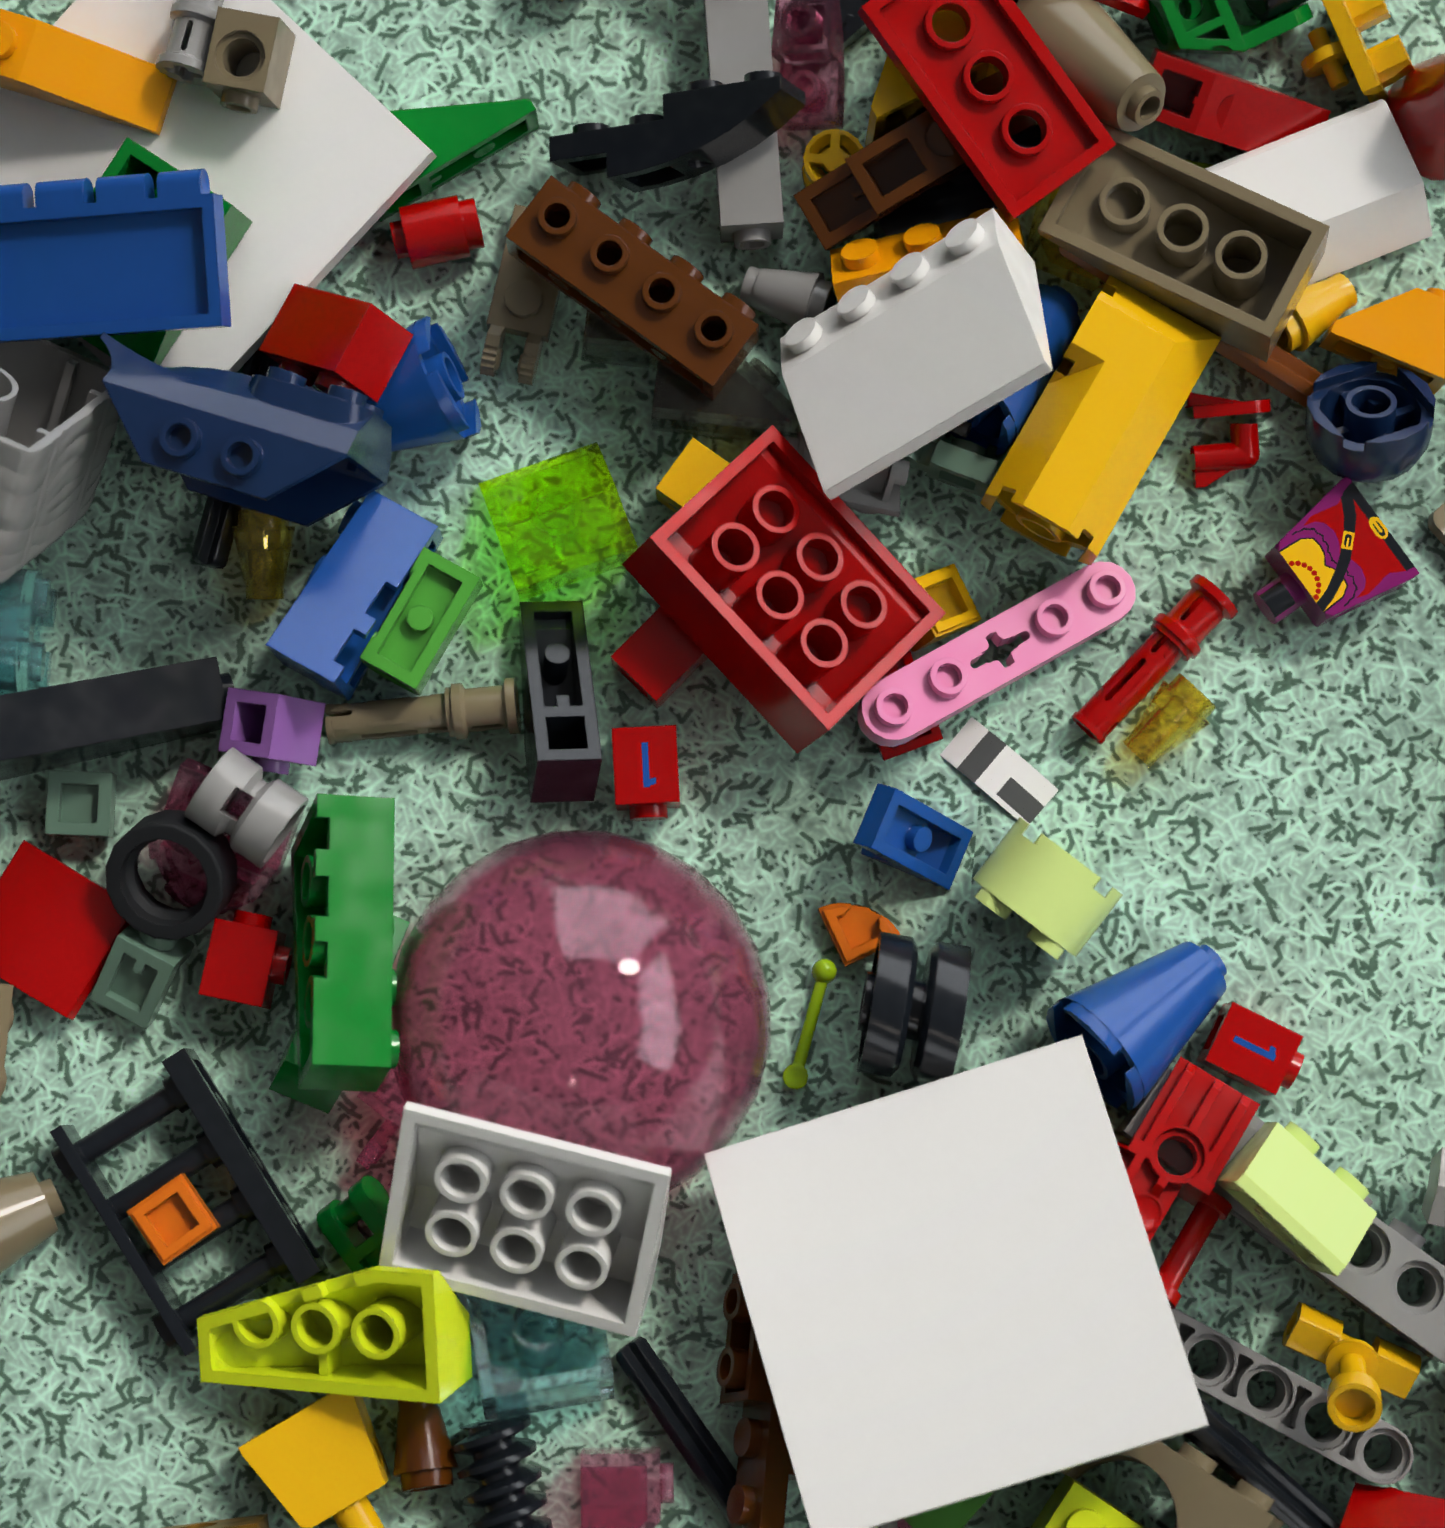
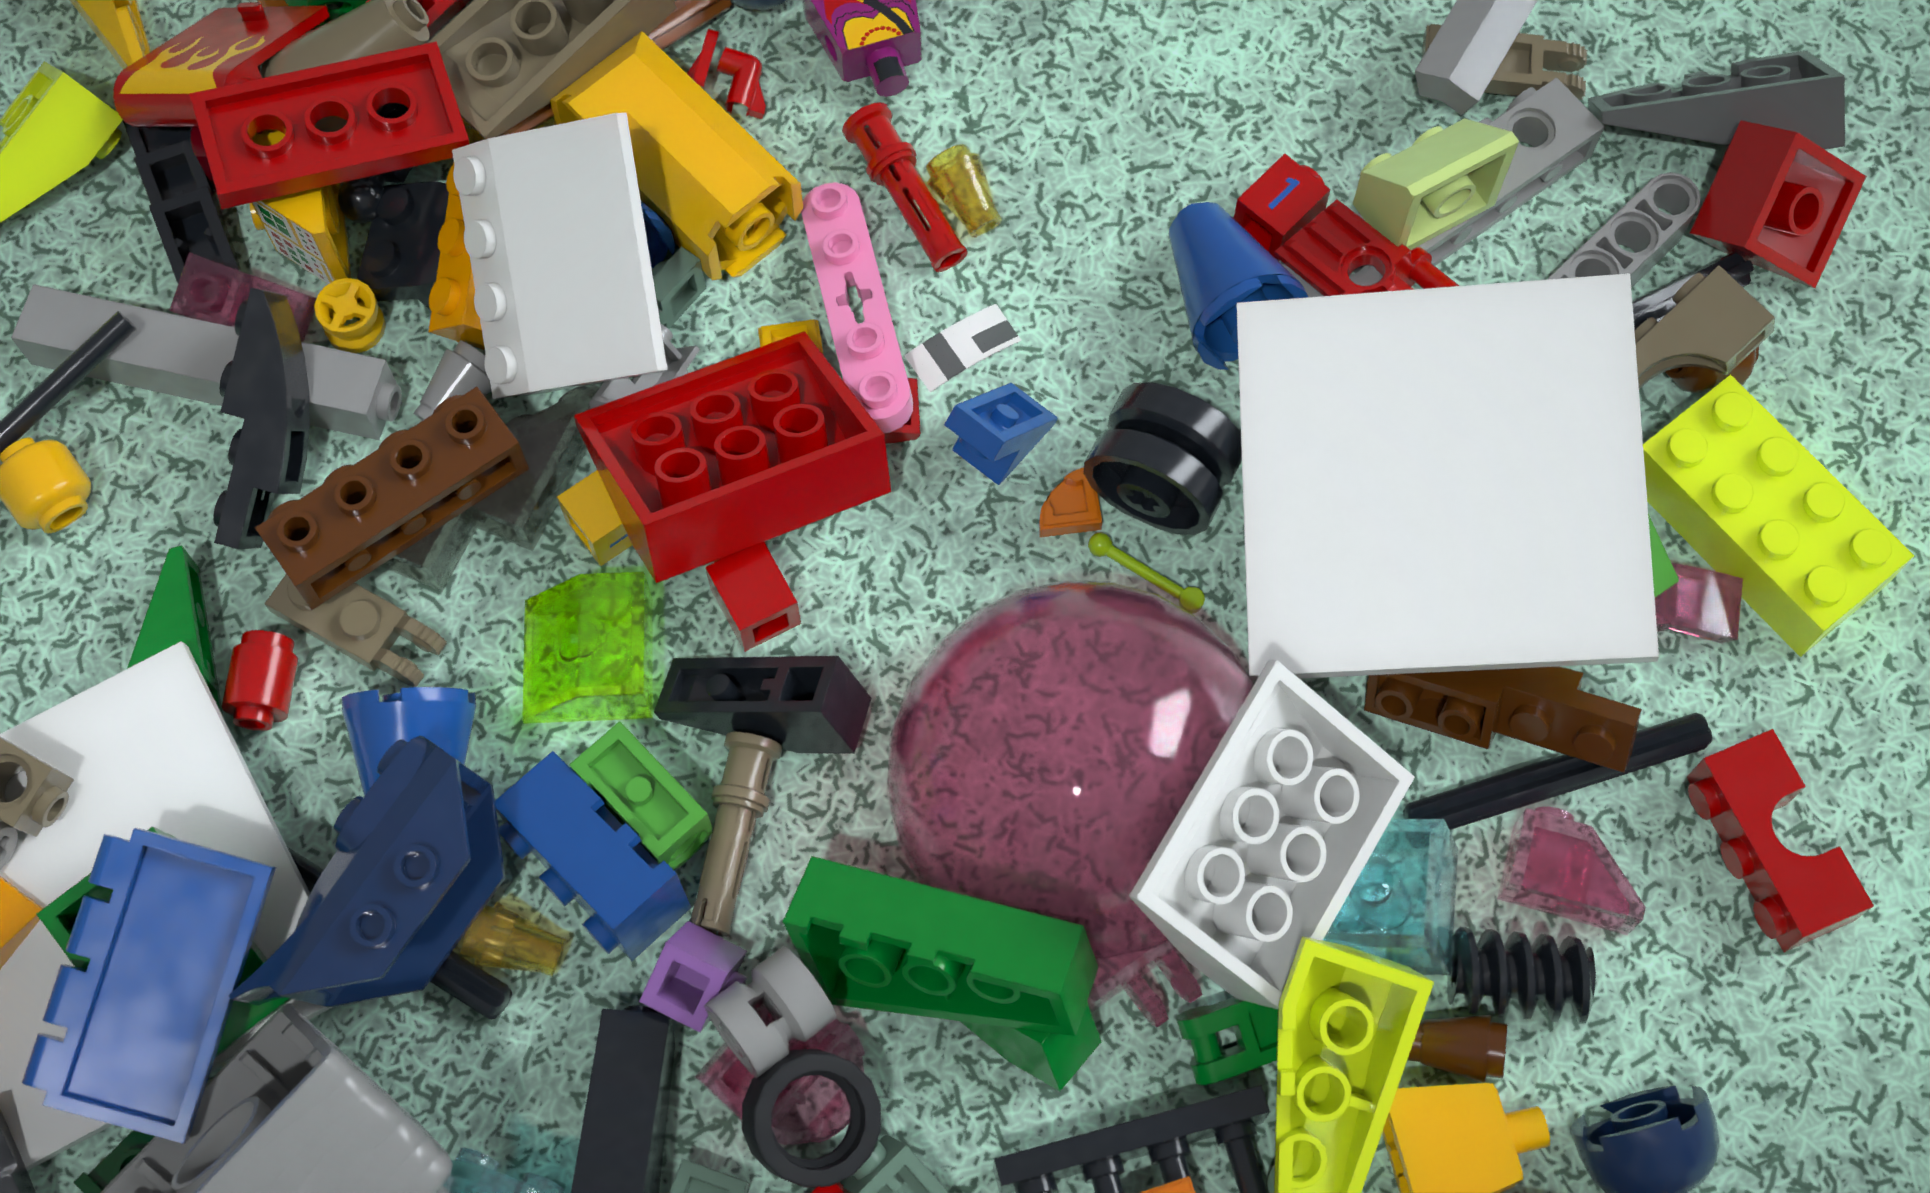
camera: 70 degrees left, 15 degrees down
(245, 960) = (922, 1078): red brick -> none
(336, 341) = (323, 773): red brick -> none
(646, 771) = (863, 635): red brick -> none
(889, 174) = (381, 254): reddish brown slope -> none
(1045, 890) = (1086, 321): yellowish green brick -> none
(1354, 1366) = (1585, 203): yellow bar -> none

